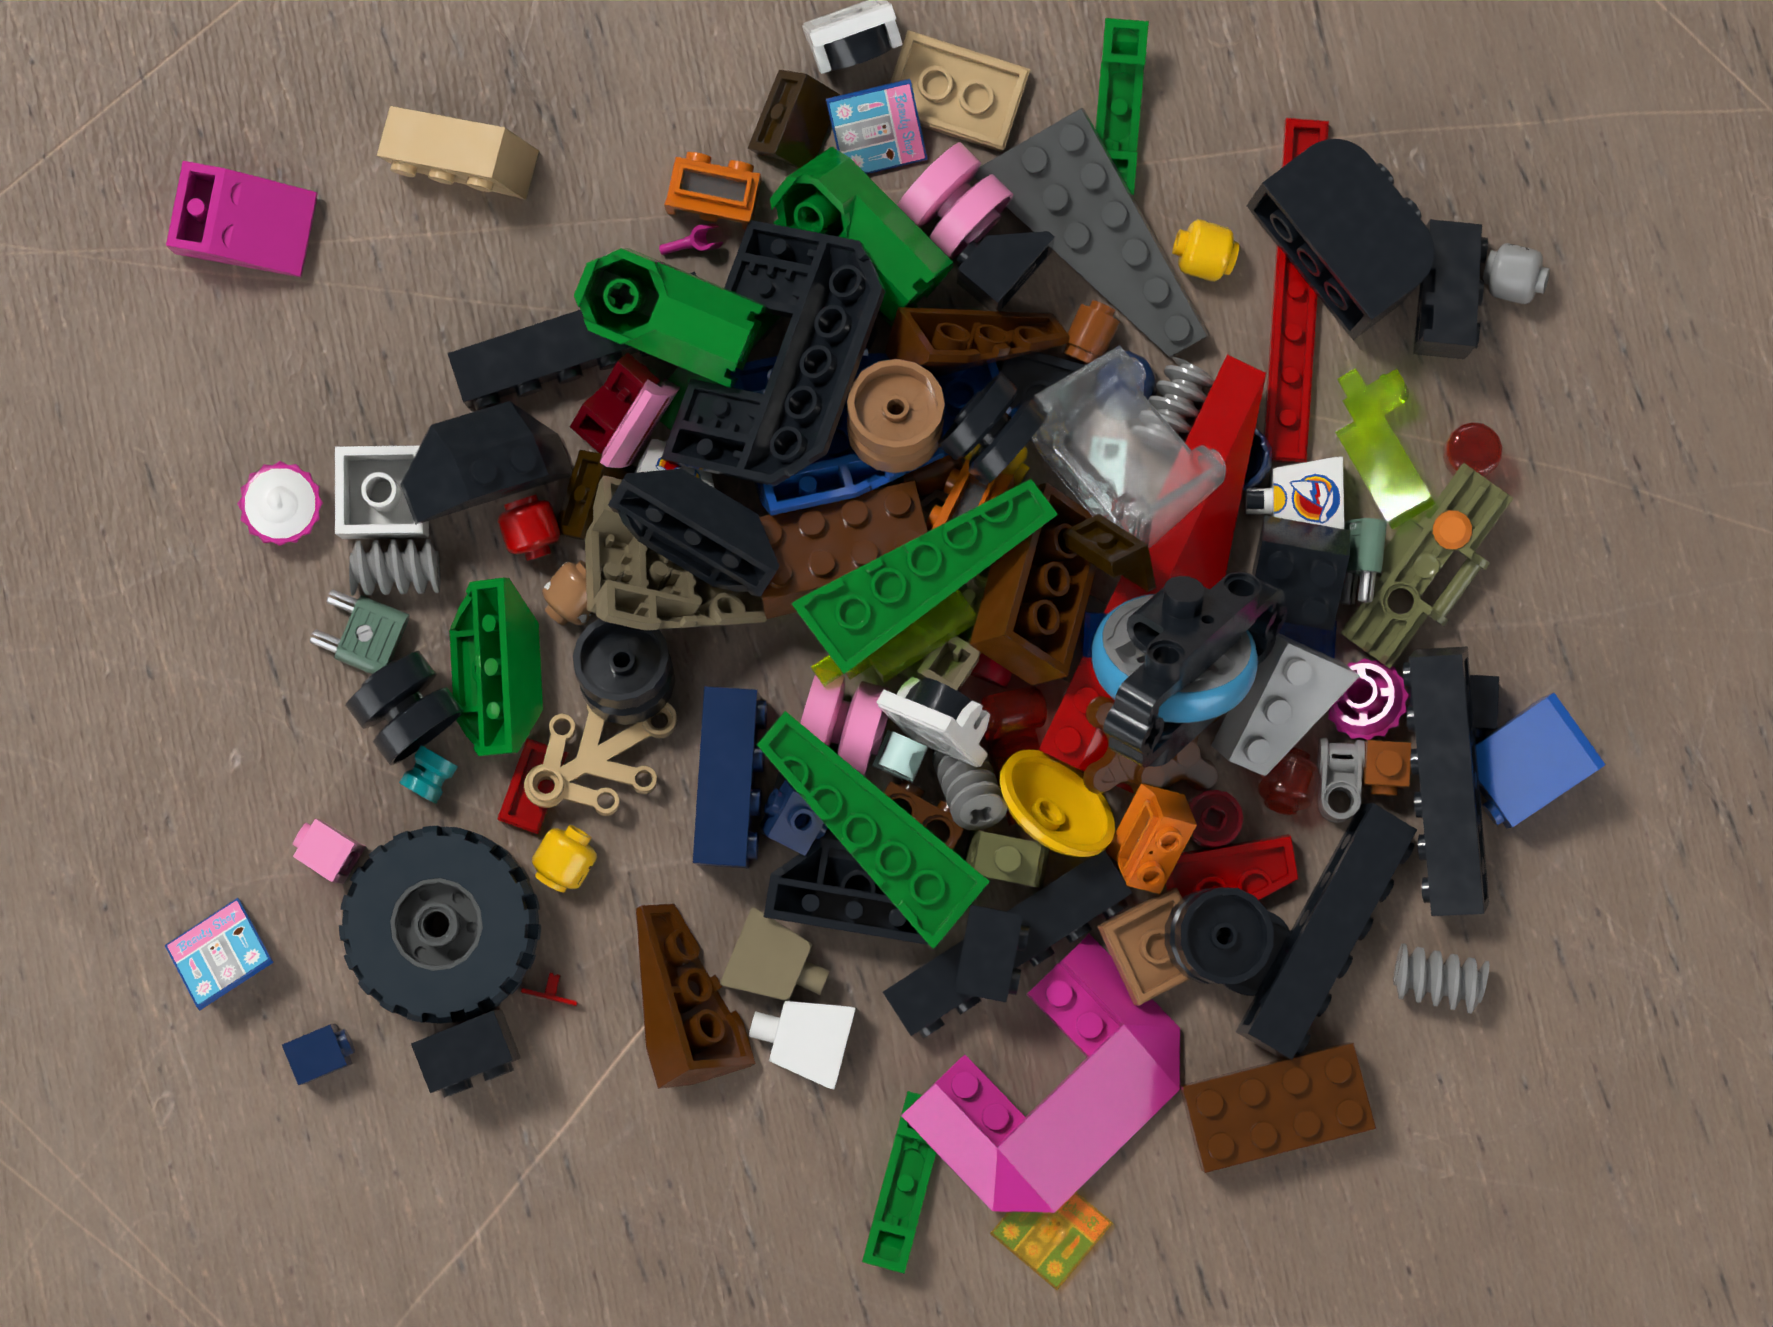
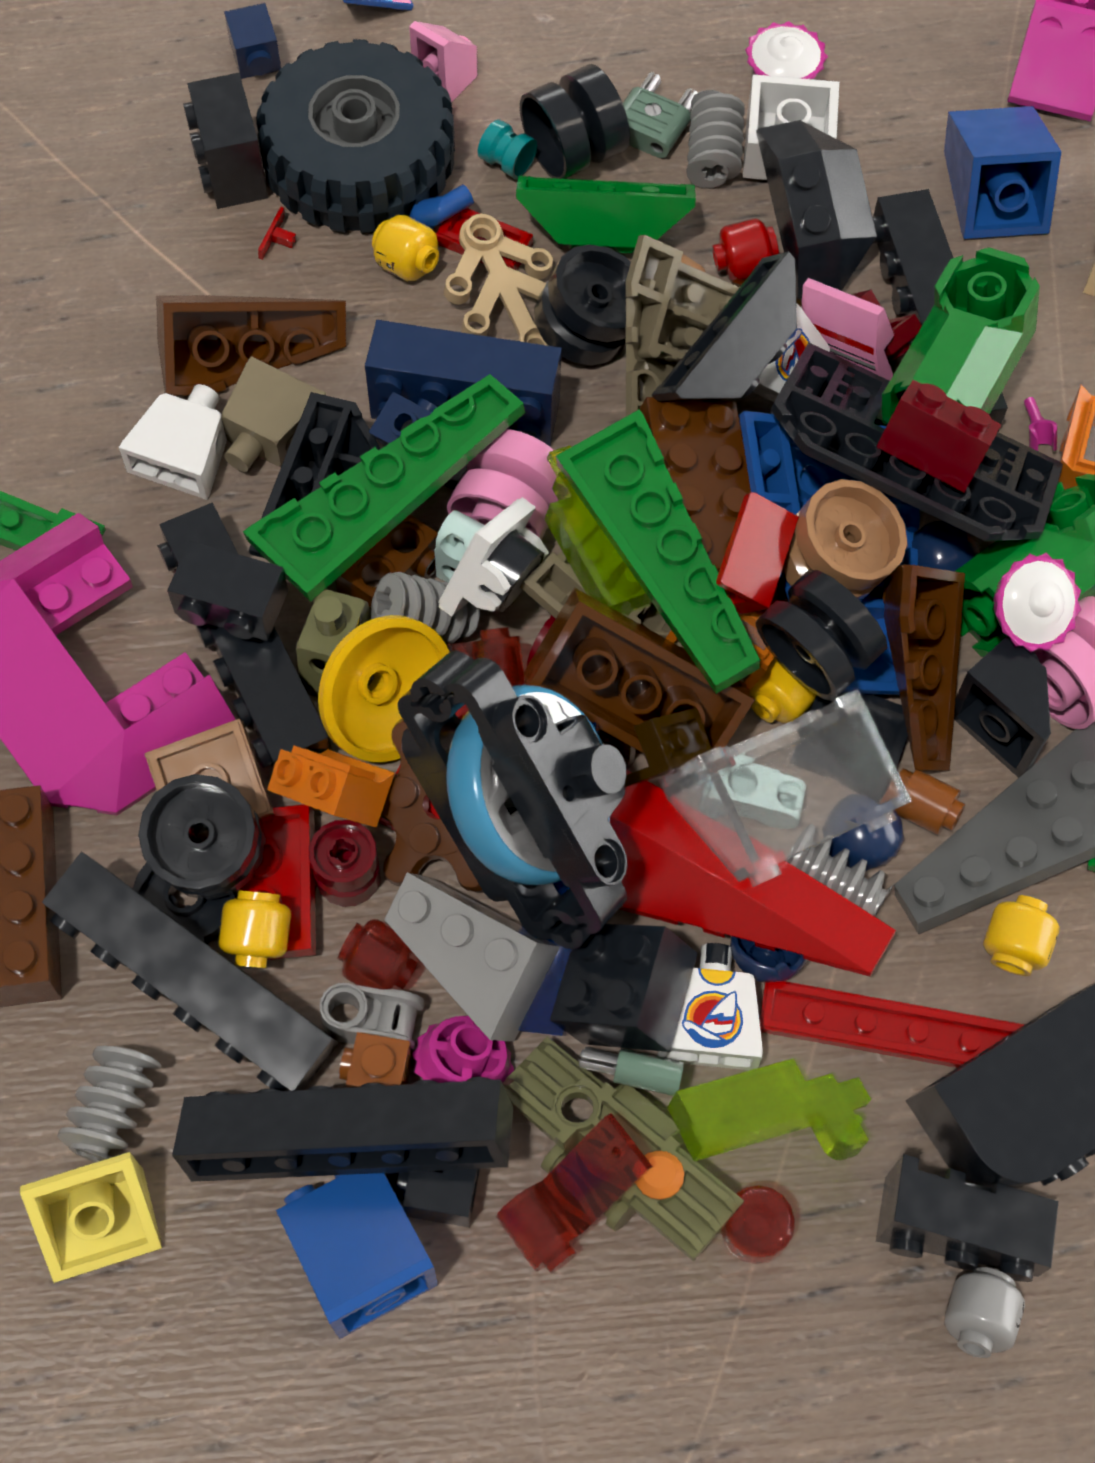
camera: 90 degrees right, 20 degrees down
(401, 283) = (1001, 171): none -> blue slope
(514, 832) = (438, 209): none -> blue arm
(786, 335) = (938, 434): none -> dark red brick
(925, 487) = (756, 553): none -> panel
(935, 245) = (1037, 602): none -> white piece
(1285, 882) = (254, 928): none -> yellow head
(1471, 598) = (573, 1196): none -> clear red door
(1529, 973) = (92, 1216): none -> light yellow slope

